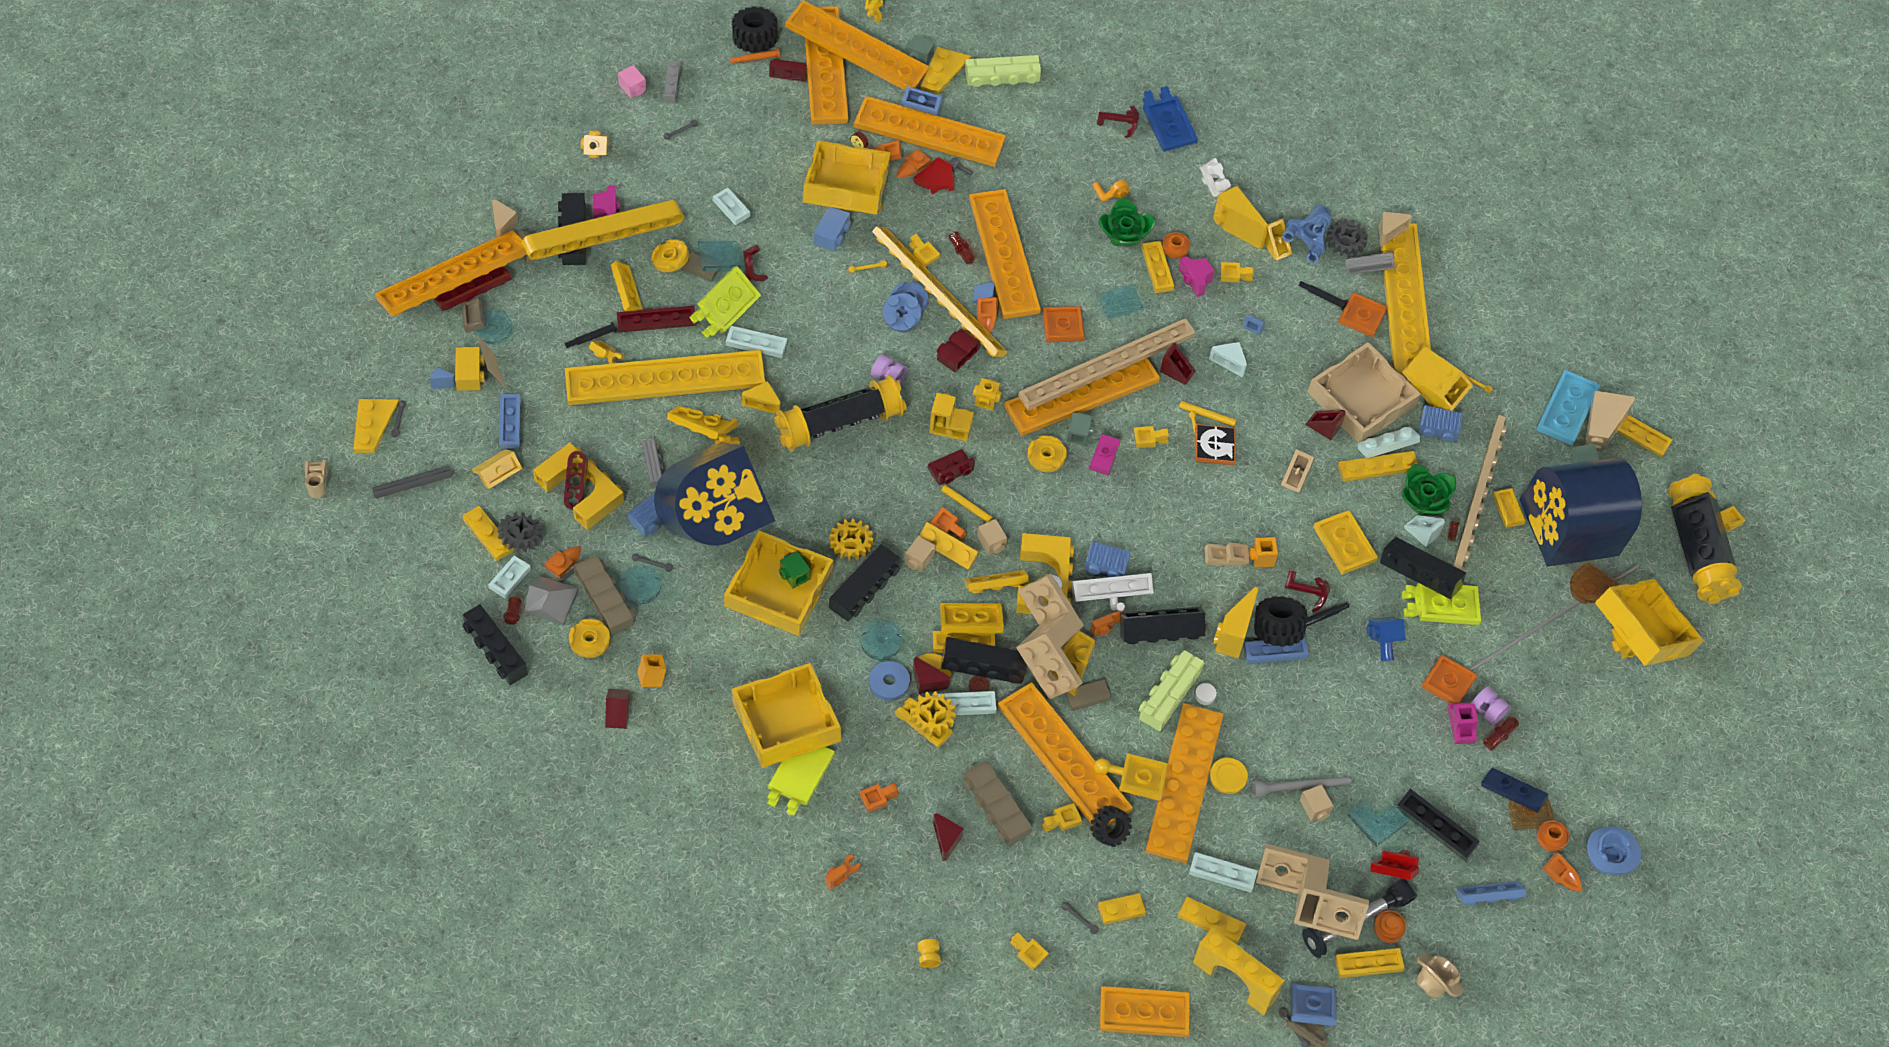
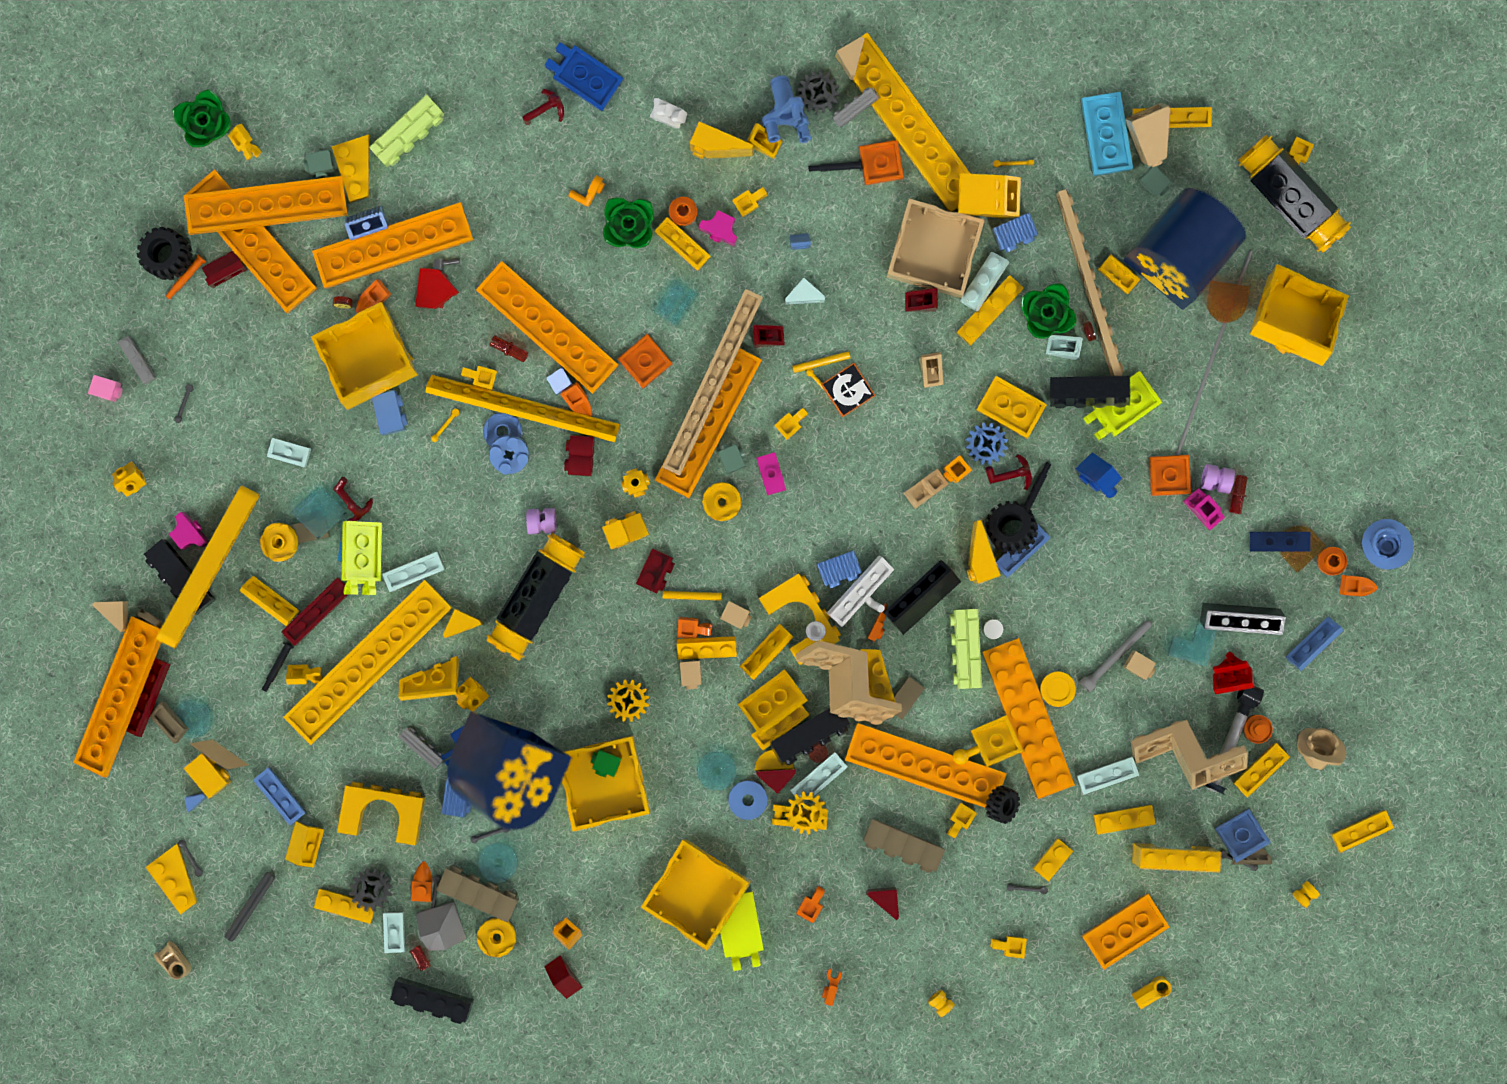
camera: 30 degrees left, 30 degrees up
(581, 466) = (378, 824): dark red beam -> none
(864, 583) = (668, 731): black brick -> none
(913, 164) = (403, 290): orange plate -> none
(1295, 555) = (979, 432): none -> medium blue gear

